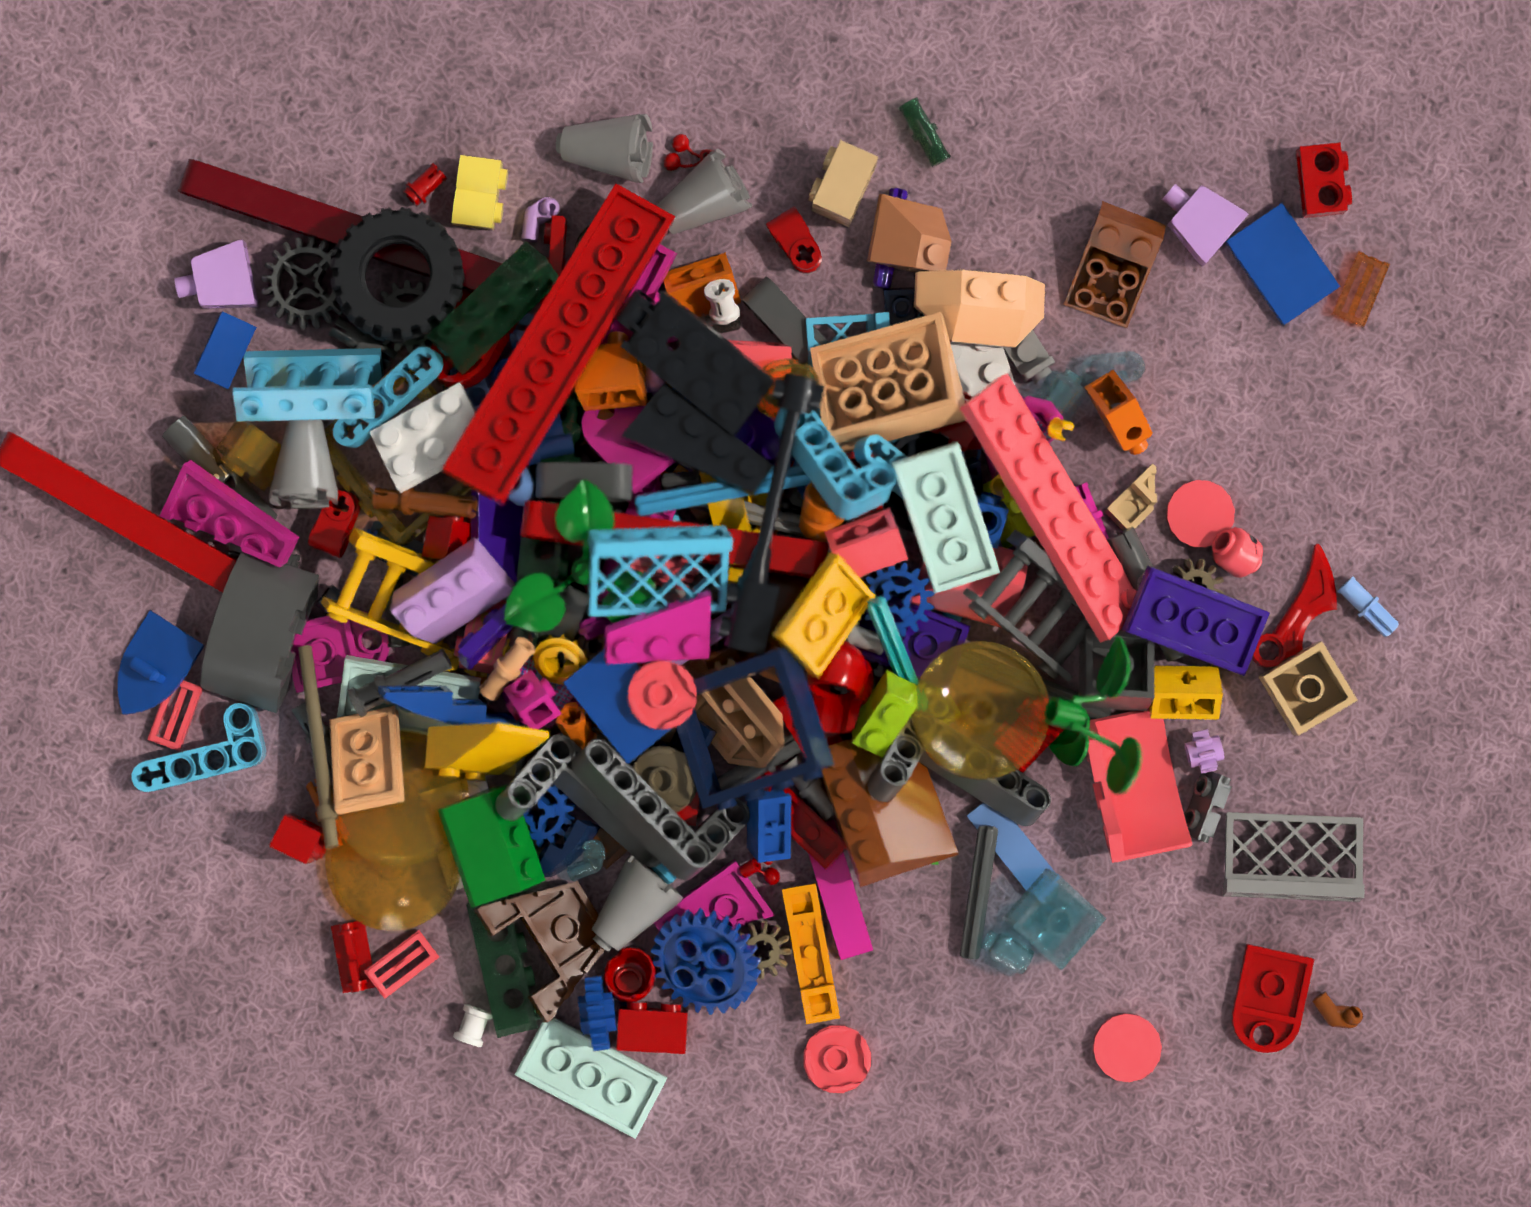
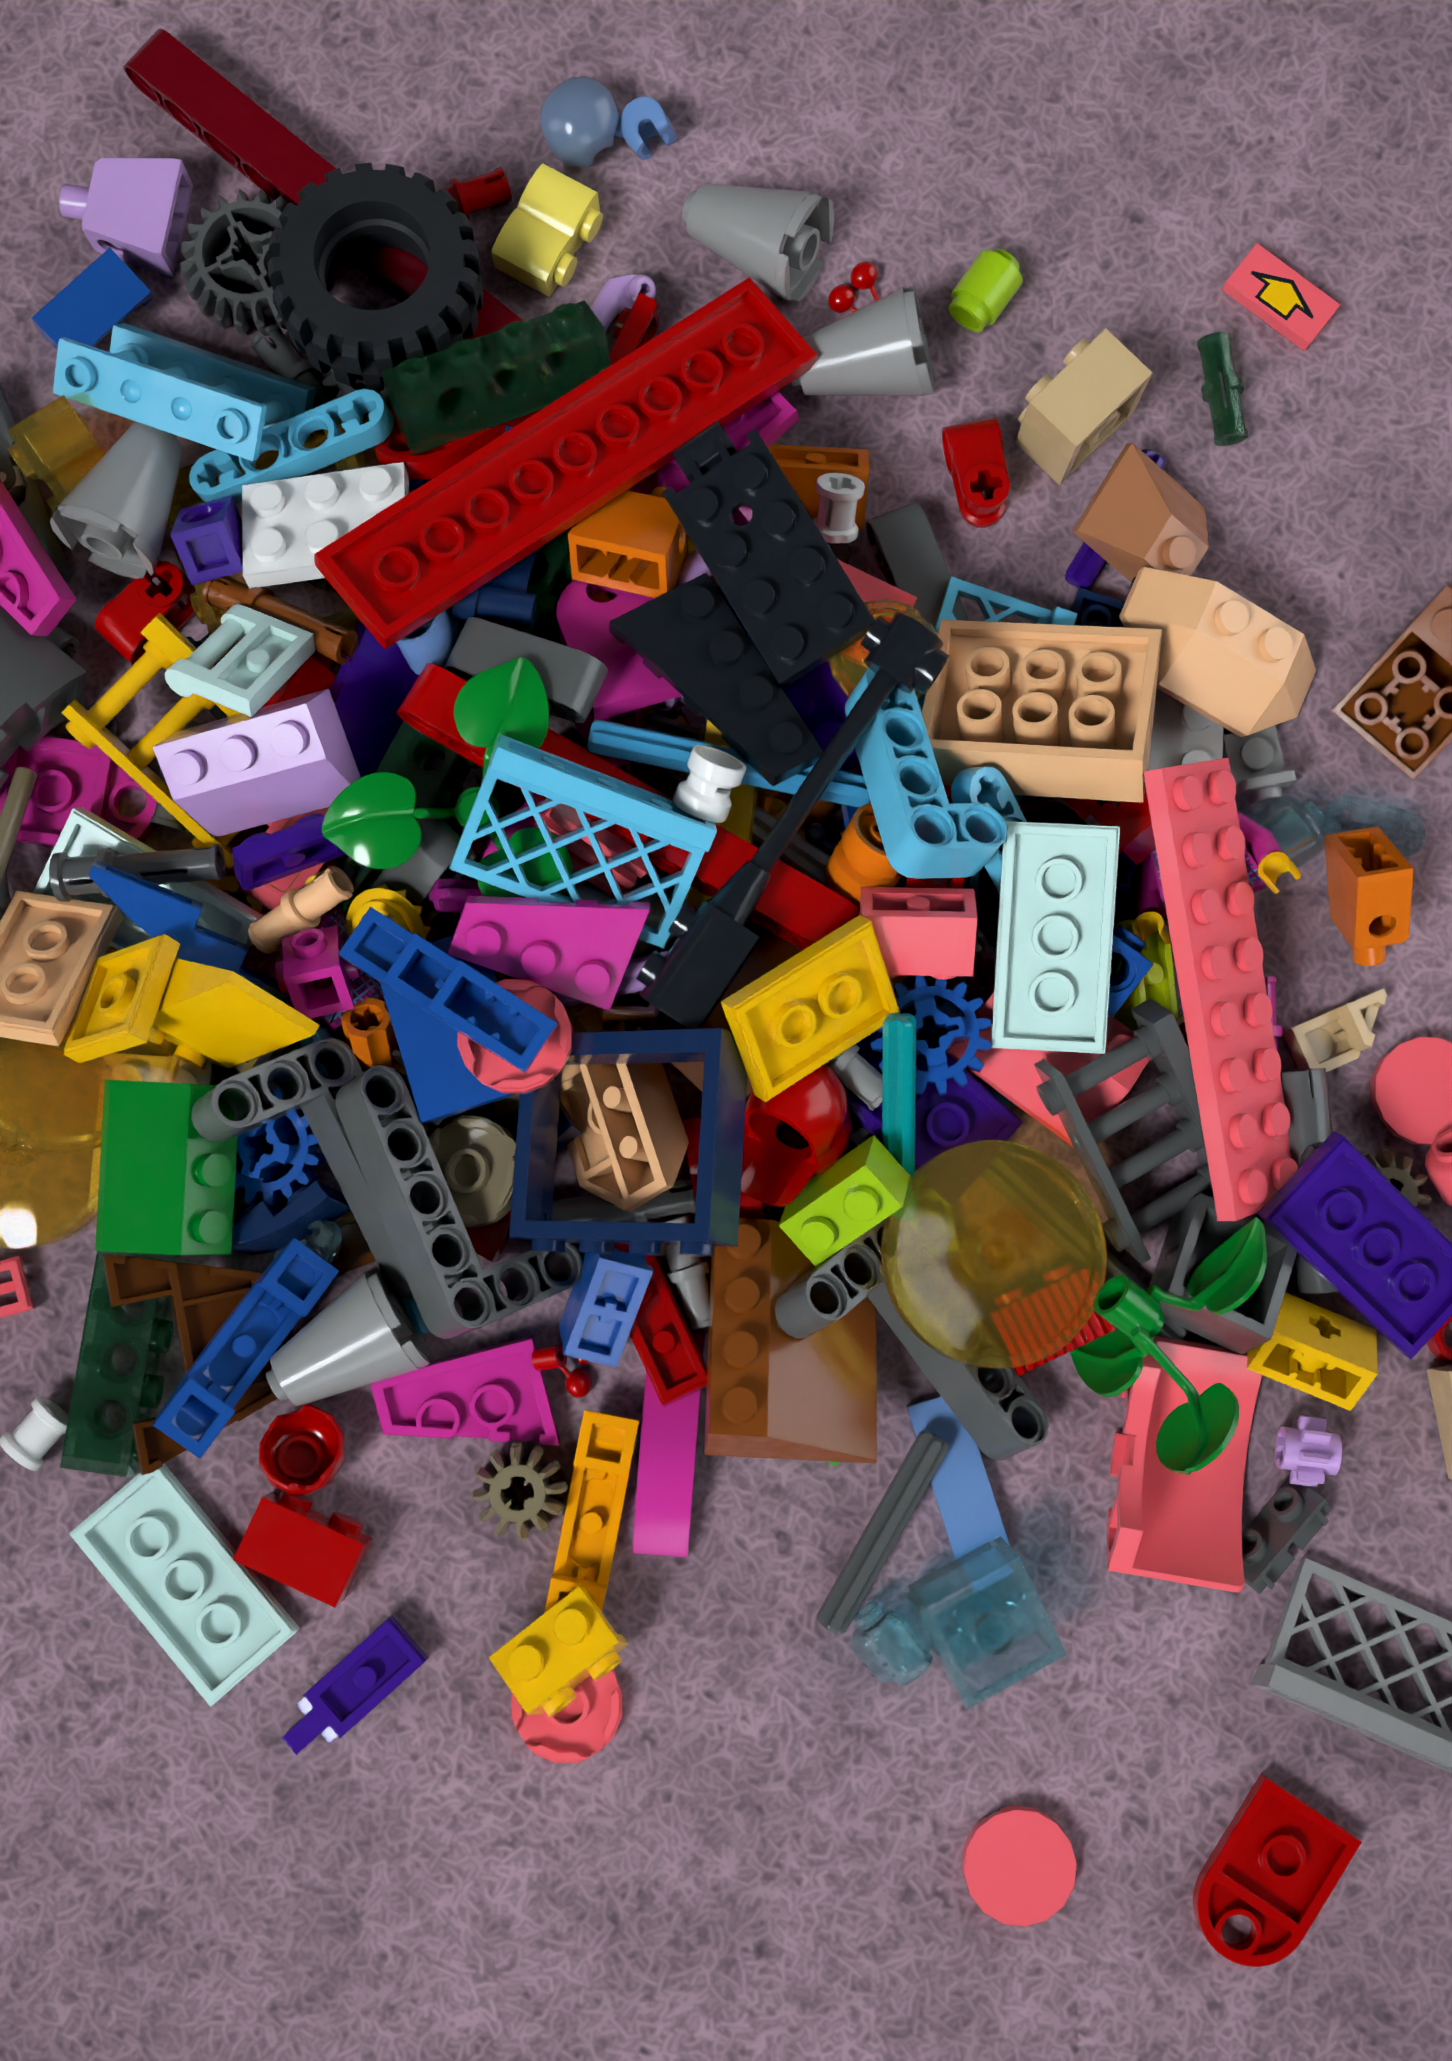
camera: 20 degrees right, 5 degrees down
(366, 472) = (209, 539): none -> dark purple brick
(429, 540) = (252, 670): none -> light aqua plate
(429, 760) = (121, 999): none -> yellow tile
(470, 115) = (579, 120): none -> sand blue hair
(505, 103) = (641, 121): none -> medium blue piece
(574, 927) = (243, 1347): none -> blue slope
(597, 1013) = (225, 1491): blue gear -> none
(615, 684) = (448, 990): none -> blue slope
(705, 961) = (424, 1475): blue gear -> none
(713, 1094) = (356, 1685): none -> dark purple hinge
(716, 509) = (709, 784): none -> white wheel
(758, 126) = (985, 289): none -> lime brick
(822, 1030) = (559, 1654): none -> yellow bracket
(939, 58) = (1280, 297): none -> coral tile
(1335, 1015) = (1365, 1945): dark orange arm -> none

